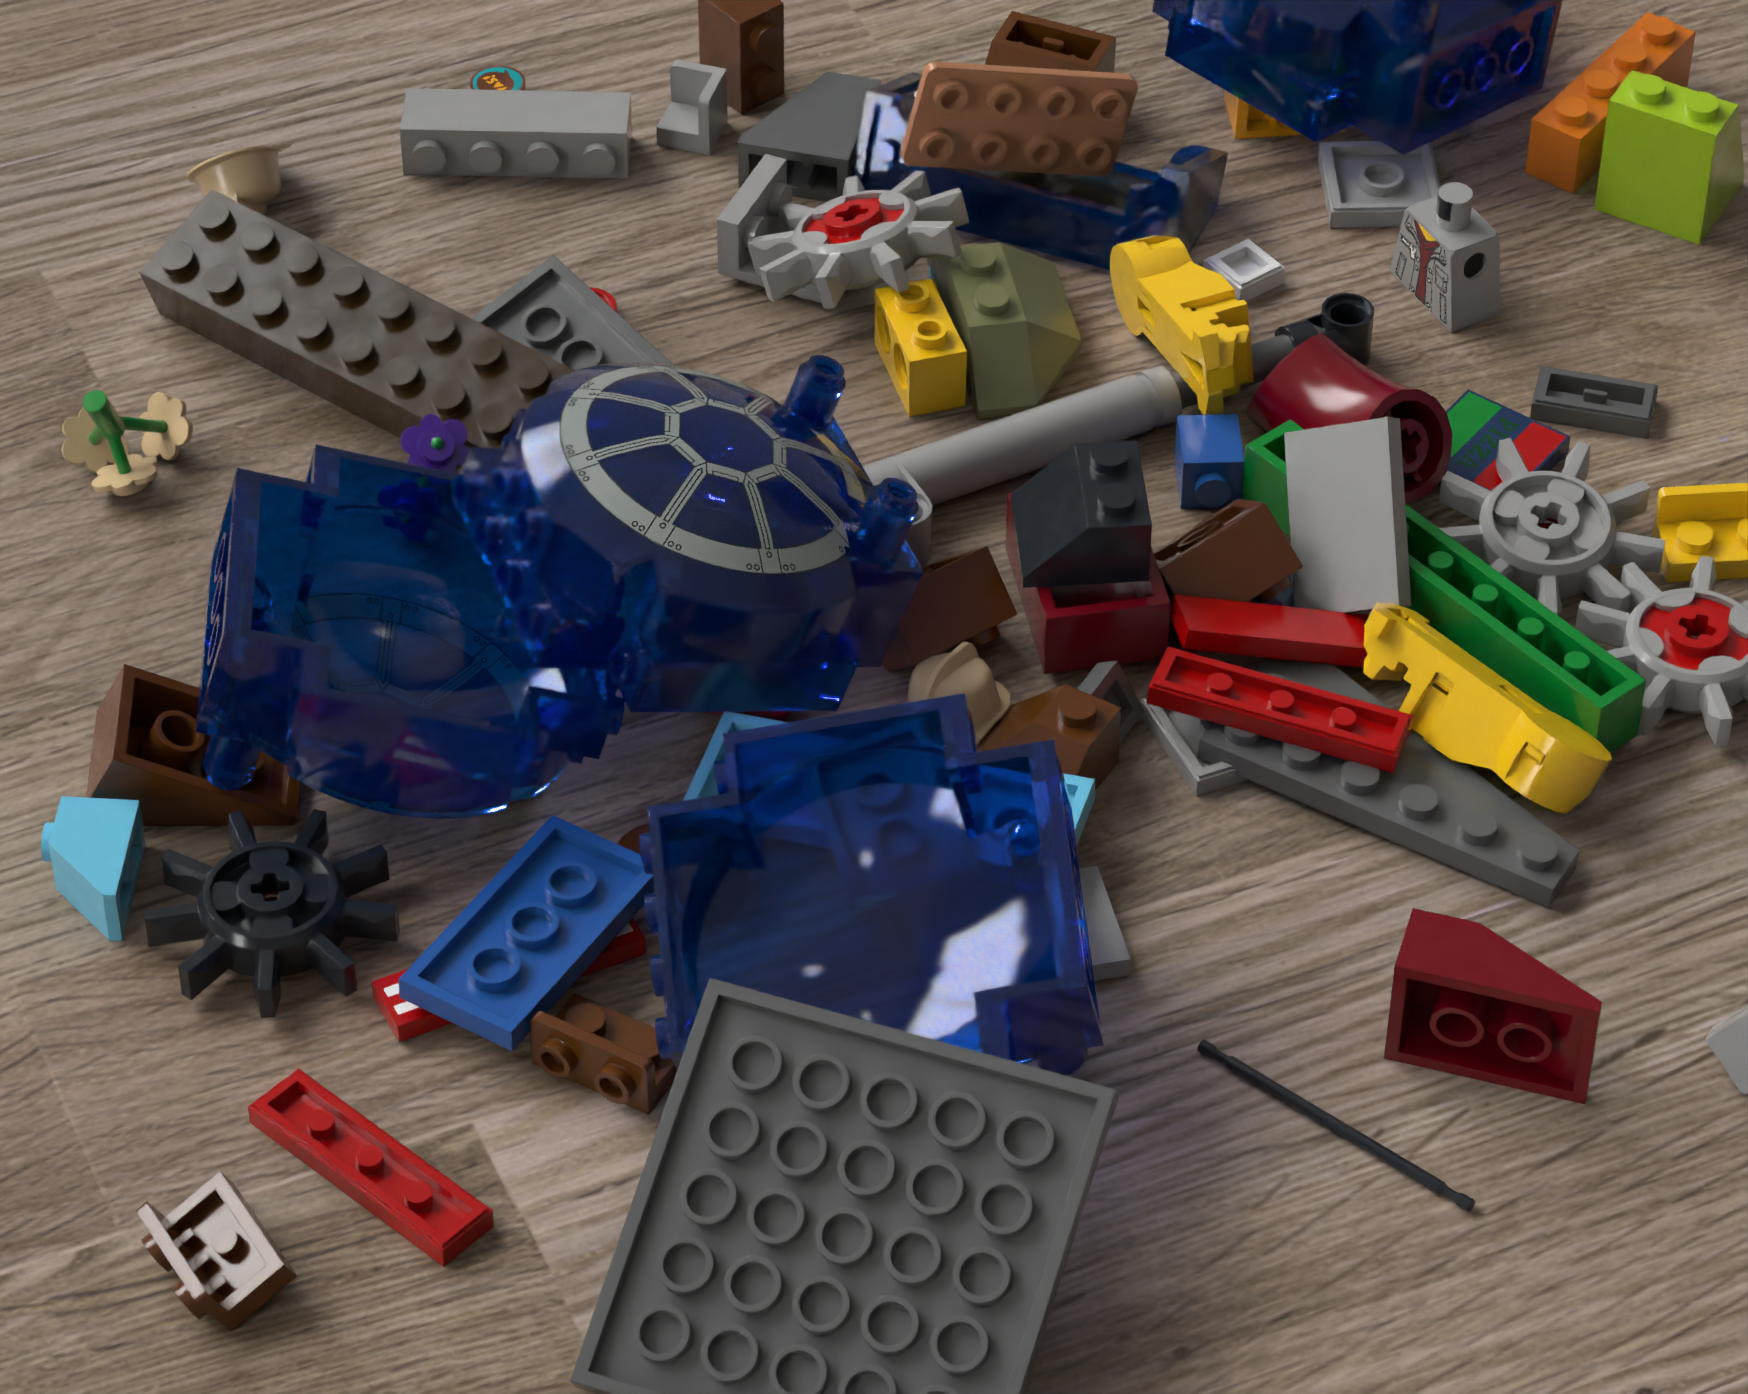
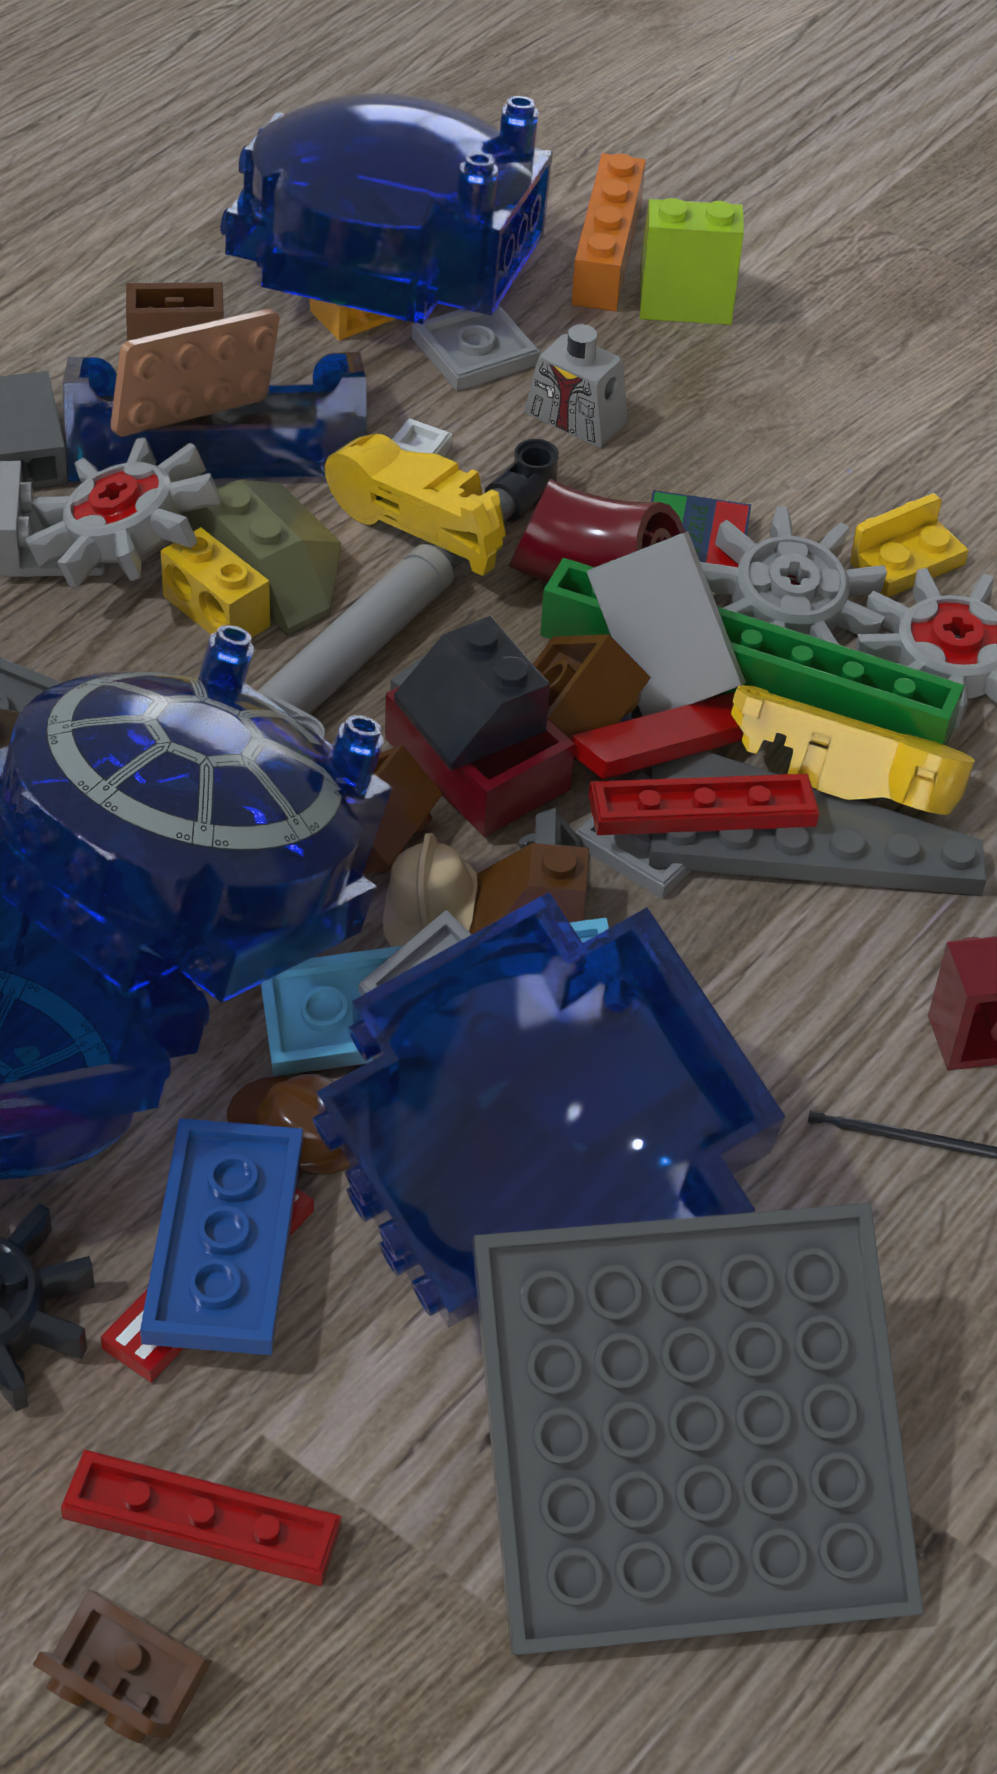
camera: 30 degrees left, 5 degrees up
(602, 1053) = (345, 1319): reddish brown bracket -> none
(1208, 460) = (507, 601): blue brick -> none
(1594, 402) = (744, 471): dark grey tile -> none

